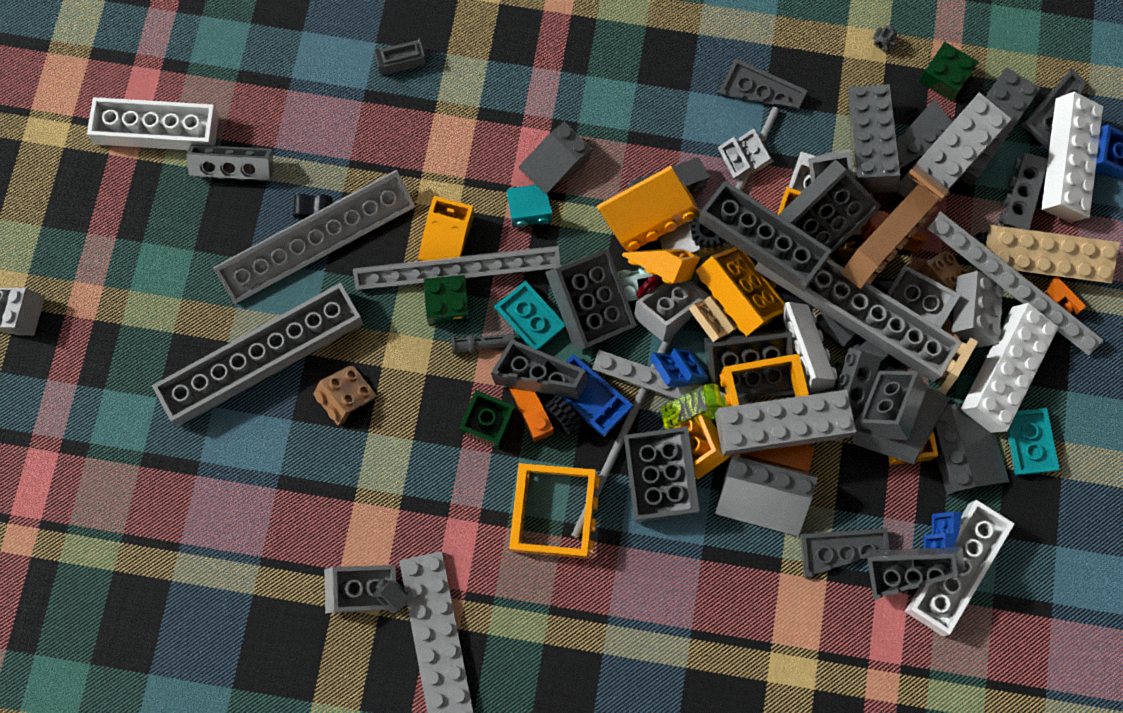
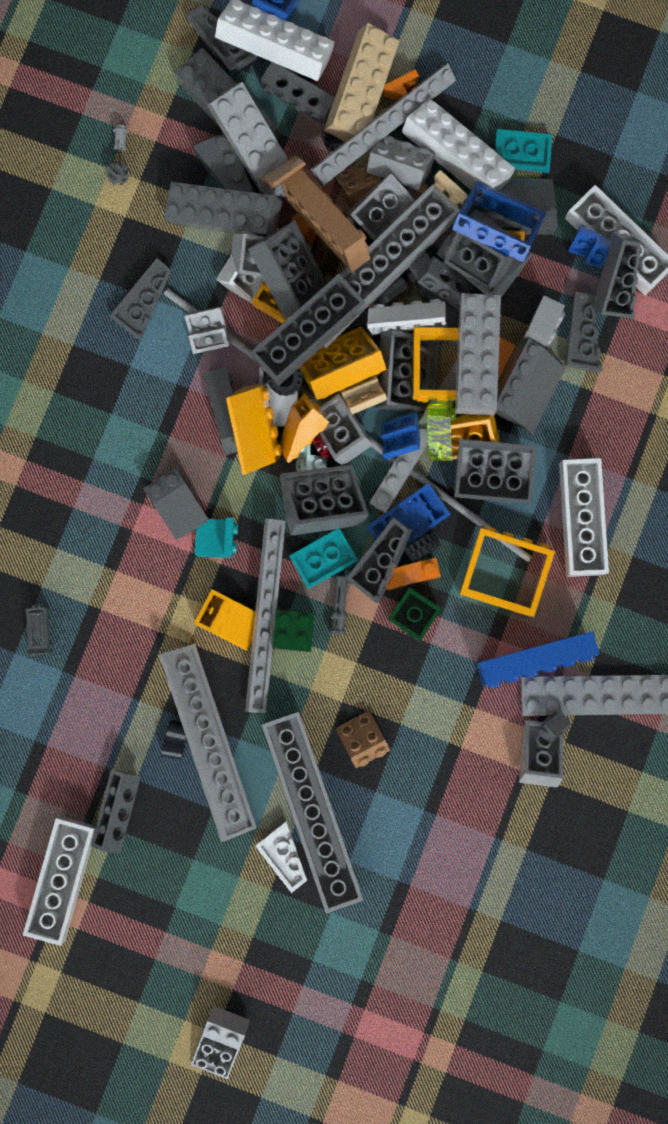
camera: 80 degrees left, 10 degrees up
(207, 336) = (283, 857): none -> white wing
(465, 564) = (542, 657): none -> blue brick
(633, 584) = (583, 517): none -> white brick
(839, 494) = (545, 322): none -> light grey brick
(923, 34) = (120, 137): none -> light grey pin
(948, 71) = (164, 125): dark green brick -> none
(960, 421) = (505, 206): none -> blue window

